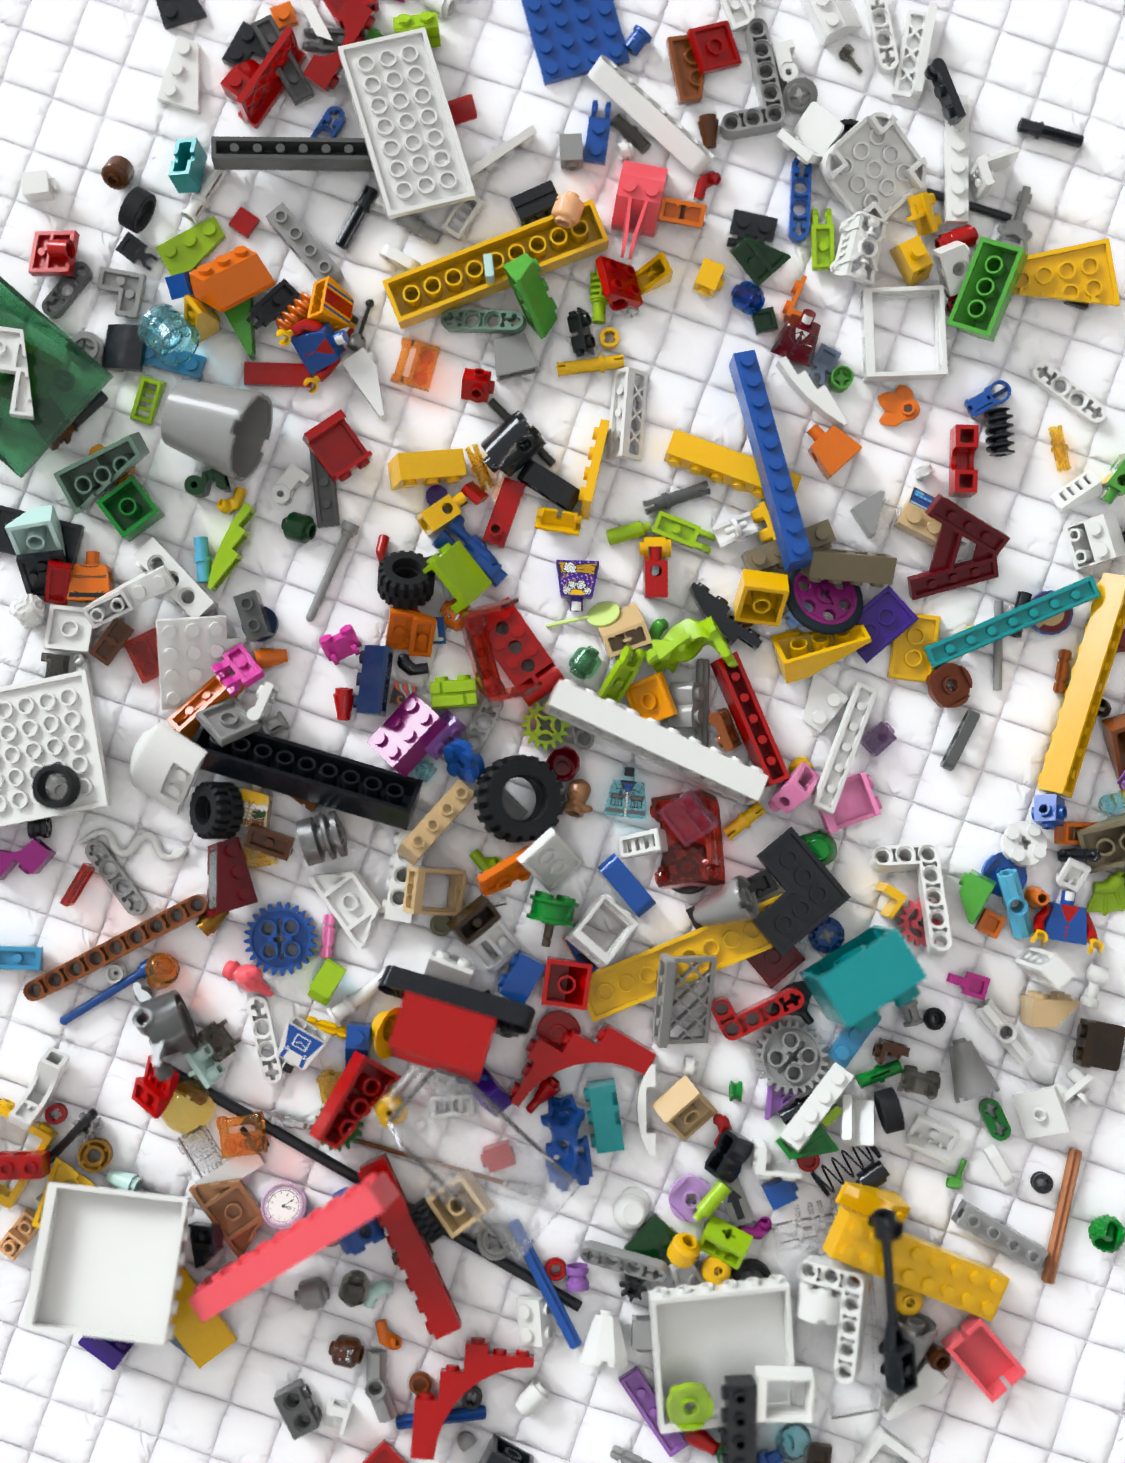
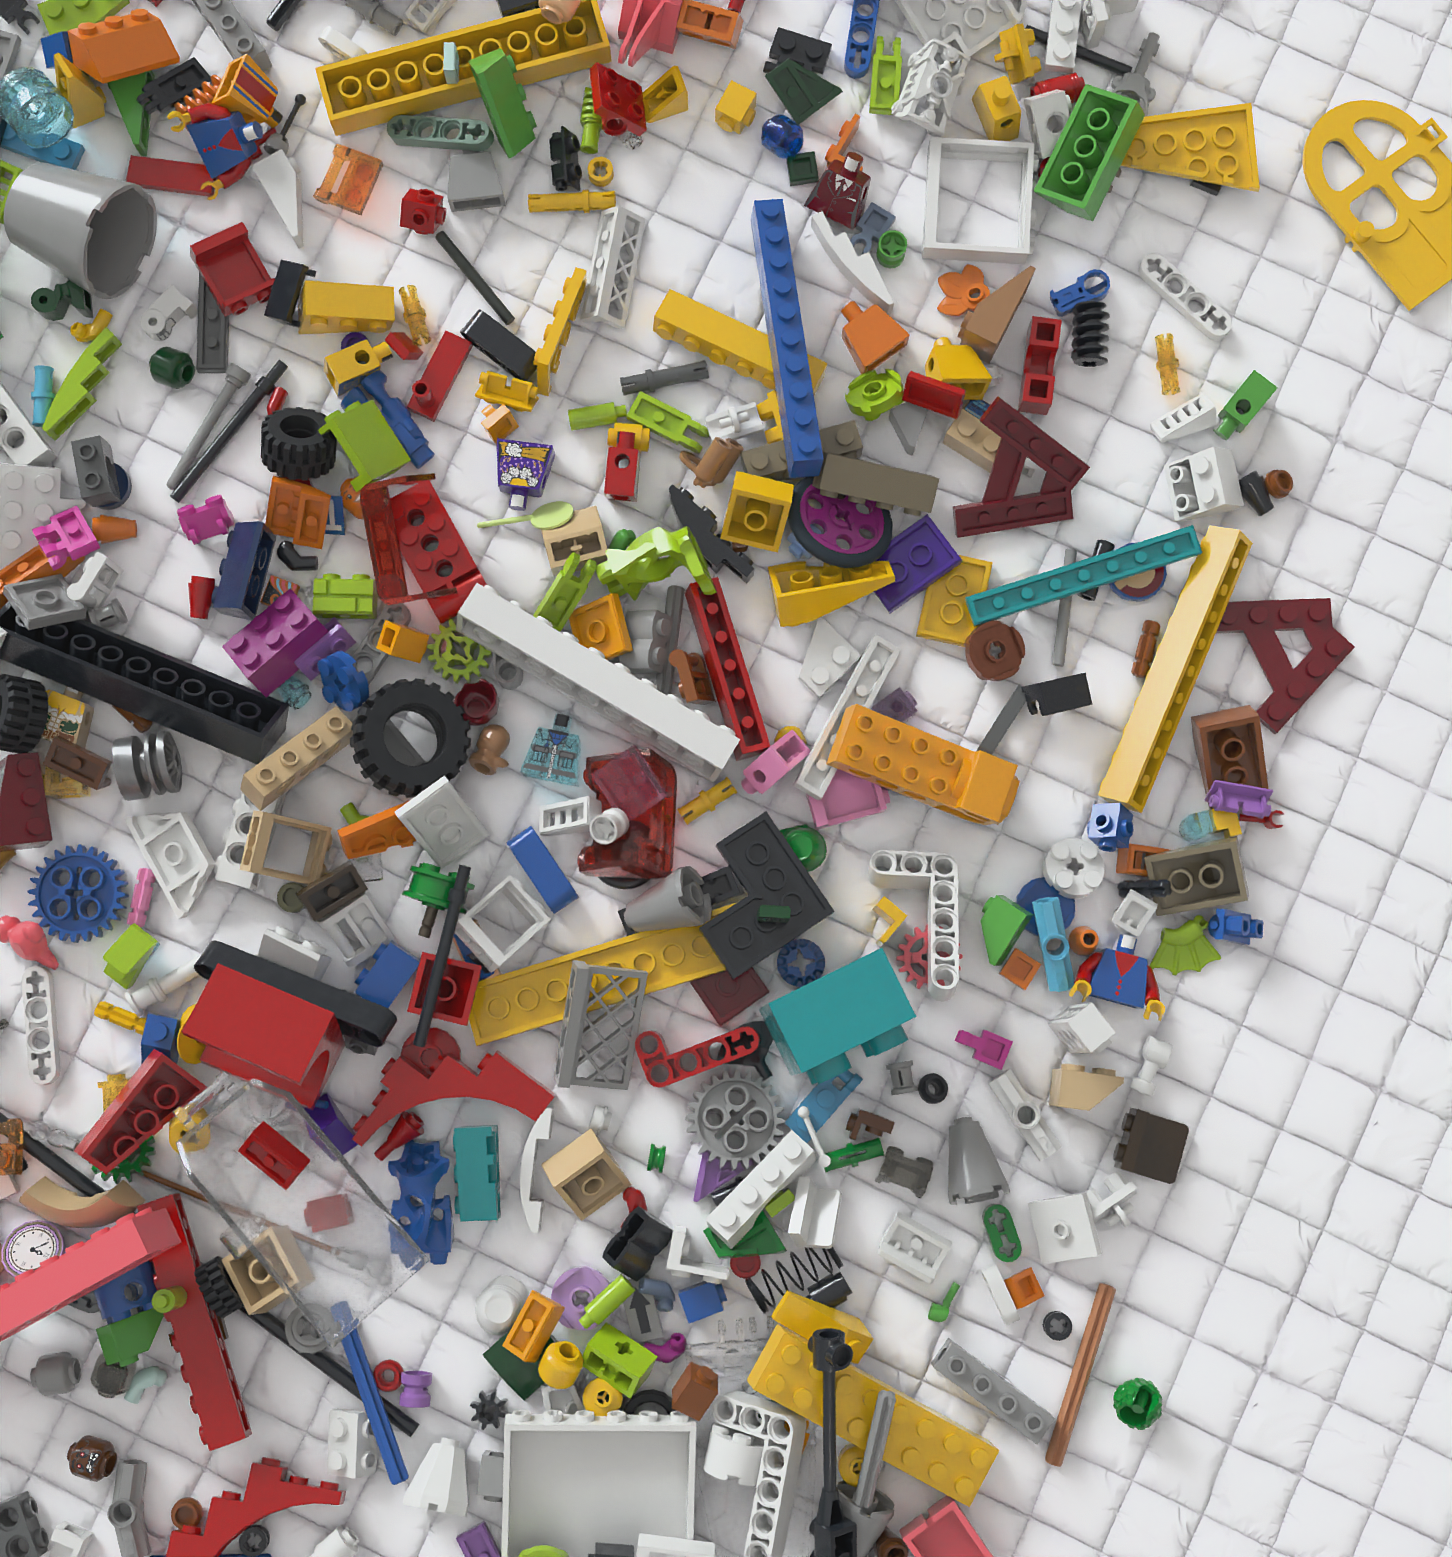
camera: 10 degrees right, 5 degrees down
(300, 1044) = (84, 1035): torso -> none
(304, 1173) = (71, 1210): none -> tan brick
(366, 1265) = (129, 1337): none -> bright green slope
(371, 535) = (265, 386): none -> black bar
(381, 460) = (287, 292): none -> black hinge
(386, 1337) = (148, 1445): orange arm -> none
(394, 1235) = (169, 1299): none -> lime cylinder
(457, 1122) = (274, 1155): none -> red slope
(502, 724) = (402, 641): none -> light orange brick
(512, 445) = (450, 296): black cylinder -> none
(554, 545) = (498, 422): none -> light orange tile
(570, 918) = (457, 897): none -> black bar
(584, 662) = (520, 574): clear green head -> none
(624, 1258) = (439, 1359): light grey beam -> none
(659, 1224) = (533, 1327): none -> light orange slope
(671, 851) = (602, 828): none -> white wheel
(724, 562) = (715, 463): none -> medium nougat piece
(749, 1187) = (661, 1290): none -> sand blue arm
(784, 1259) = (695, 1391): none -> dark orange brick
(807, 905) = (773, 913): none -> dark green tile
(840, 505) = (870, 405): none -> lime plate
(859, 1080) = (824, 1160): none -> white hinge
(887, 494) = (933, 395): none -> red tile
(889, 1110) = (858, 1204): black tyre -> none
(900, 472) = (958, 367): none -> yellow torso
(907, 781) = (924, 766): none -> light orange brick
(922, 435) = (993, 315): none -> medium nougat slope
(923, 1290) = (875, 1448): none -> light grey axle
(1001, 714) = (1058, 695): none -> black hinge
(1015, 1158) = (1024, 1288): none -> orange plate
(1106, 705) = (1199, 700): black hinge -> none

